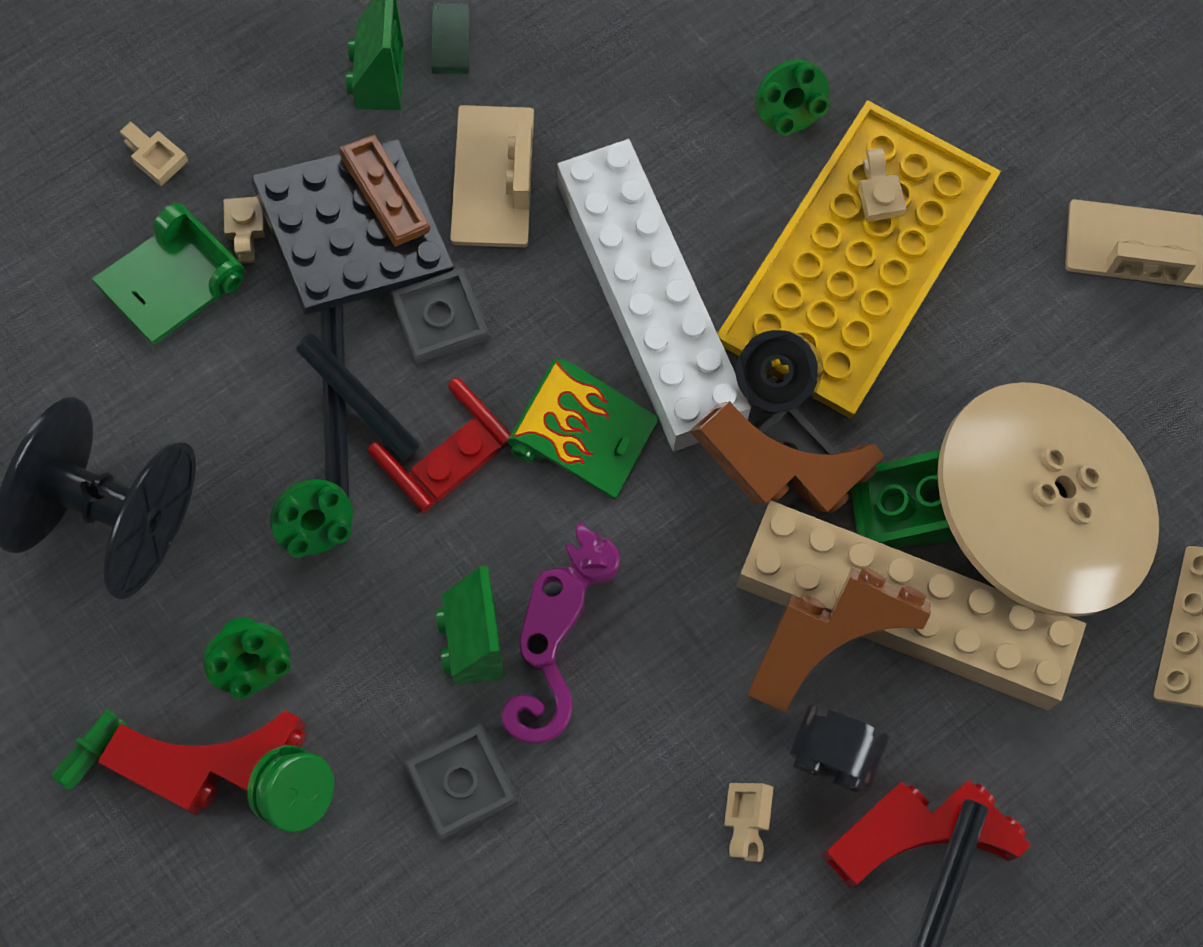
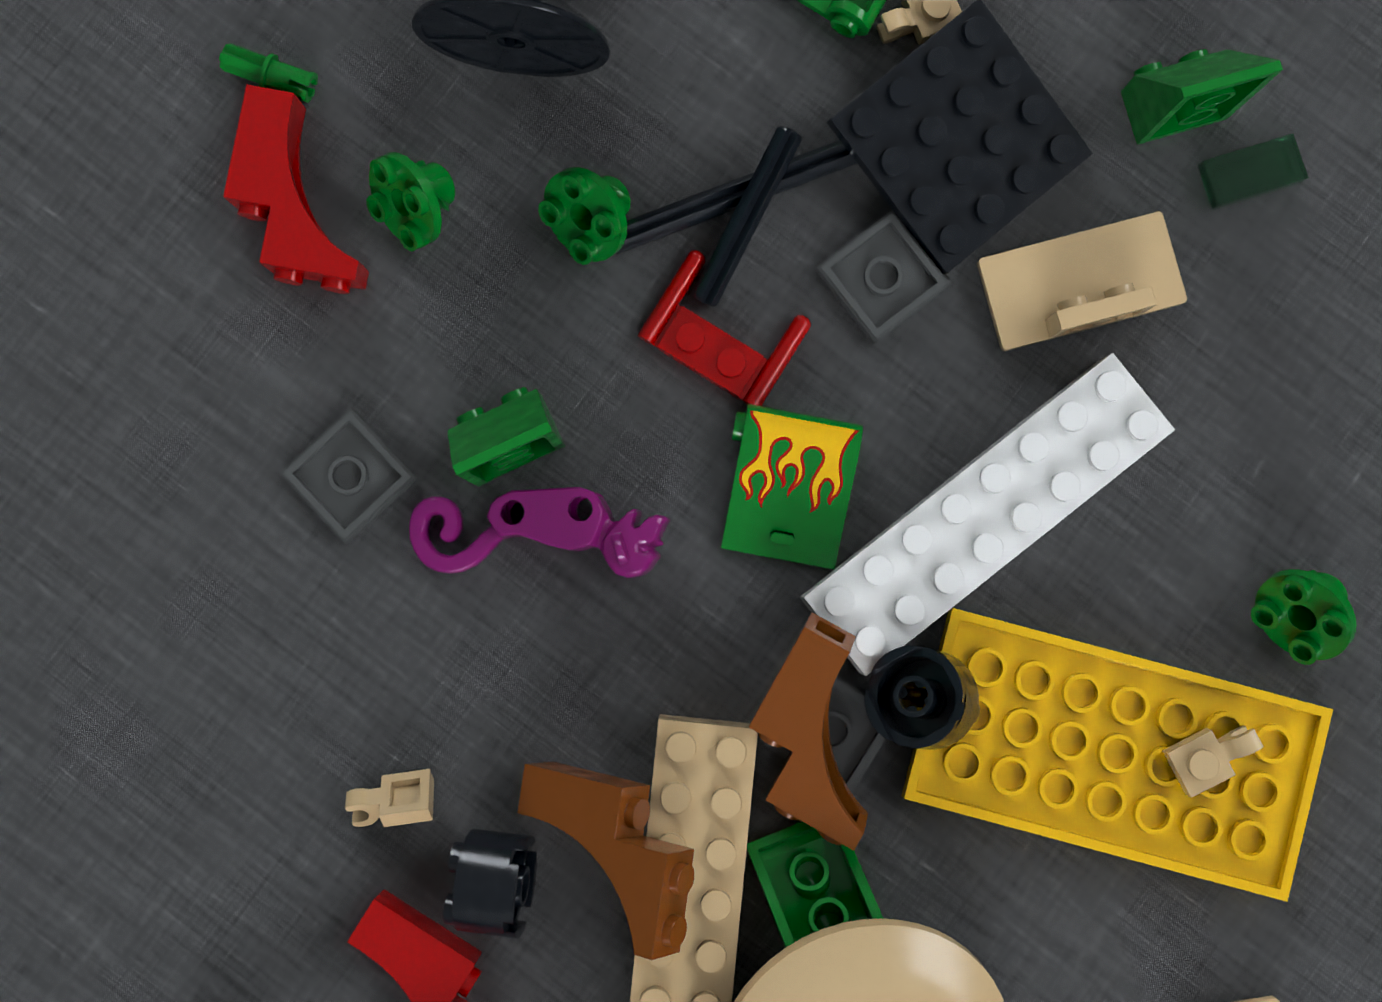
camera: 75 degrees right, 15 degrees up
(290, 788) = (277, 297): green head -> none
(384, 190) = (1013, 159): dark orange tile -> none

